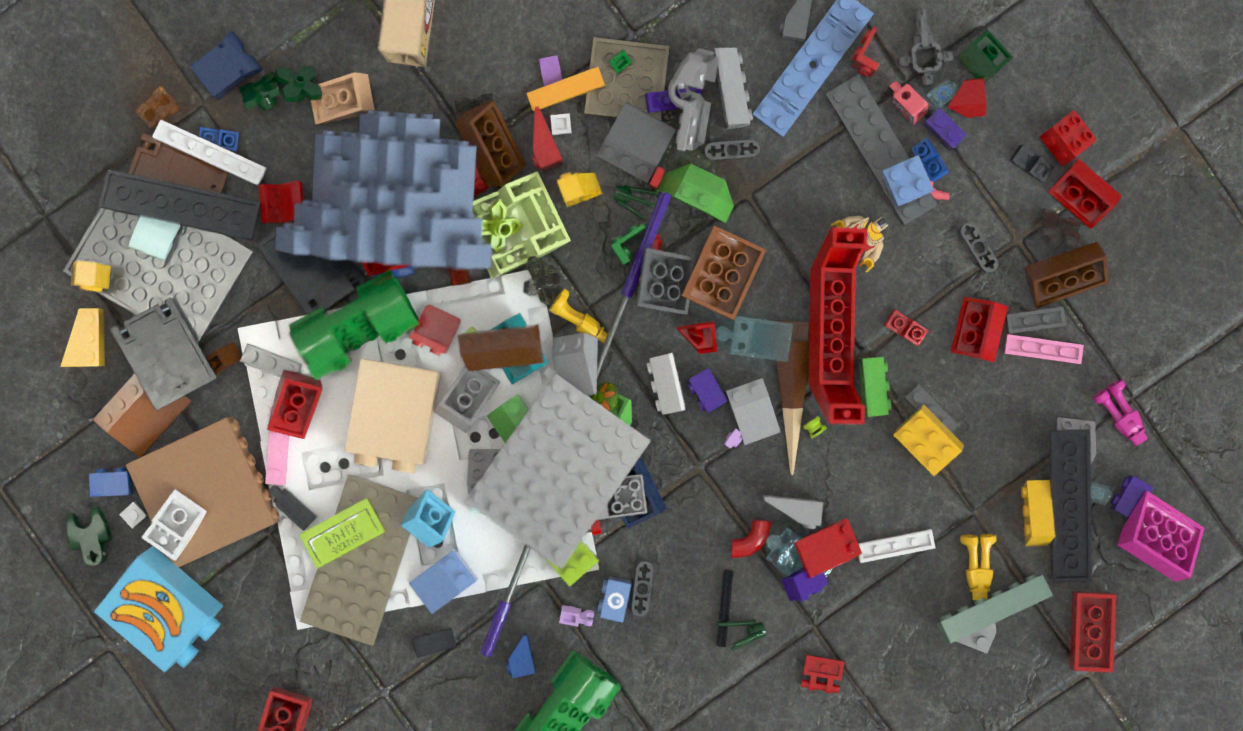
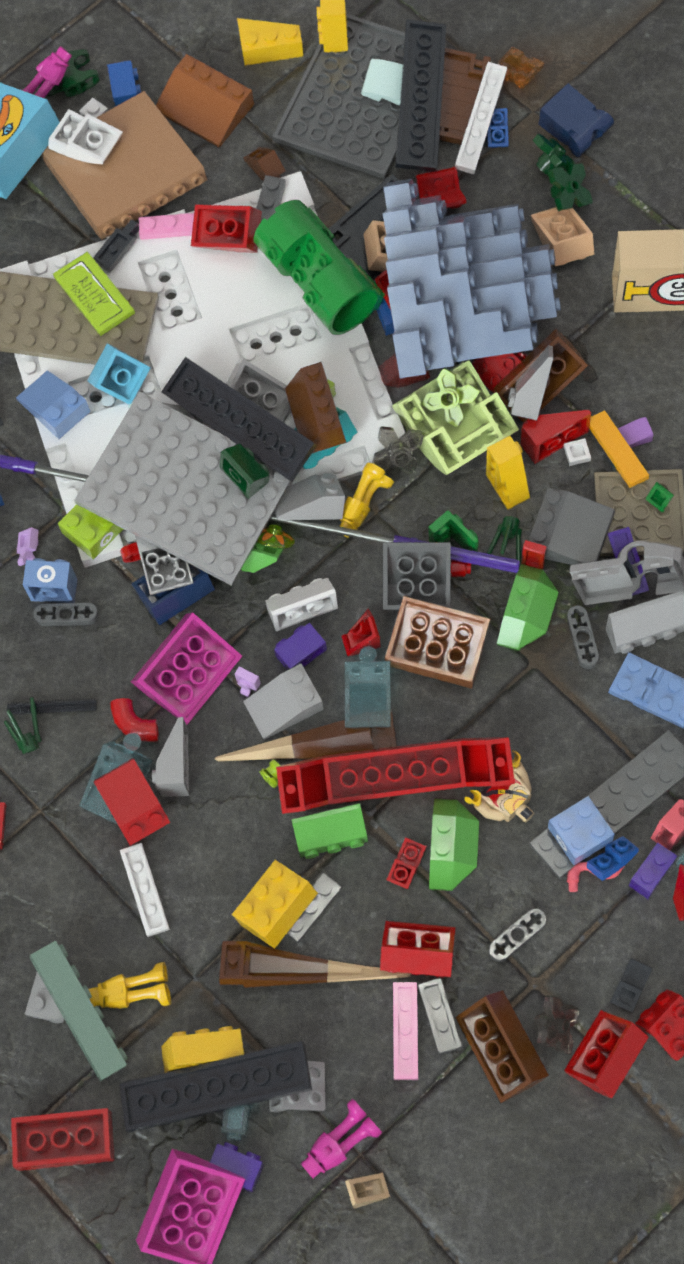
camera: 90 degrees right, 20 degrees down
(94, 549) = (51, 70): none -> dark pink piece
(163, 354) = (262, 104): door -> none
(334, 269) = (375, 246): none -> light nougat brick
(392, 414) = (228, 320): tan brick -> none
(435, 330) = (329, 350): red bracket -> none
(500, 416) = (239, 419): none -> black plate
(509, 153) = (530, 387): none -> light grey slope
(555, 416) = (243, 469): none -> dark green slope
(709, 489) = (186, 668): none -> dark pink slope
(799, 586) = (81, 775): dark purple brick -> none
(895, 287) = (452, 844): none -> bright green wedge
(976, 461) = (264, 966): none -> reddish brown plate
(1163, 397) = (367, 1189): none -> tan slope

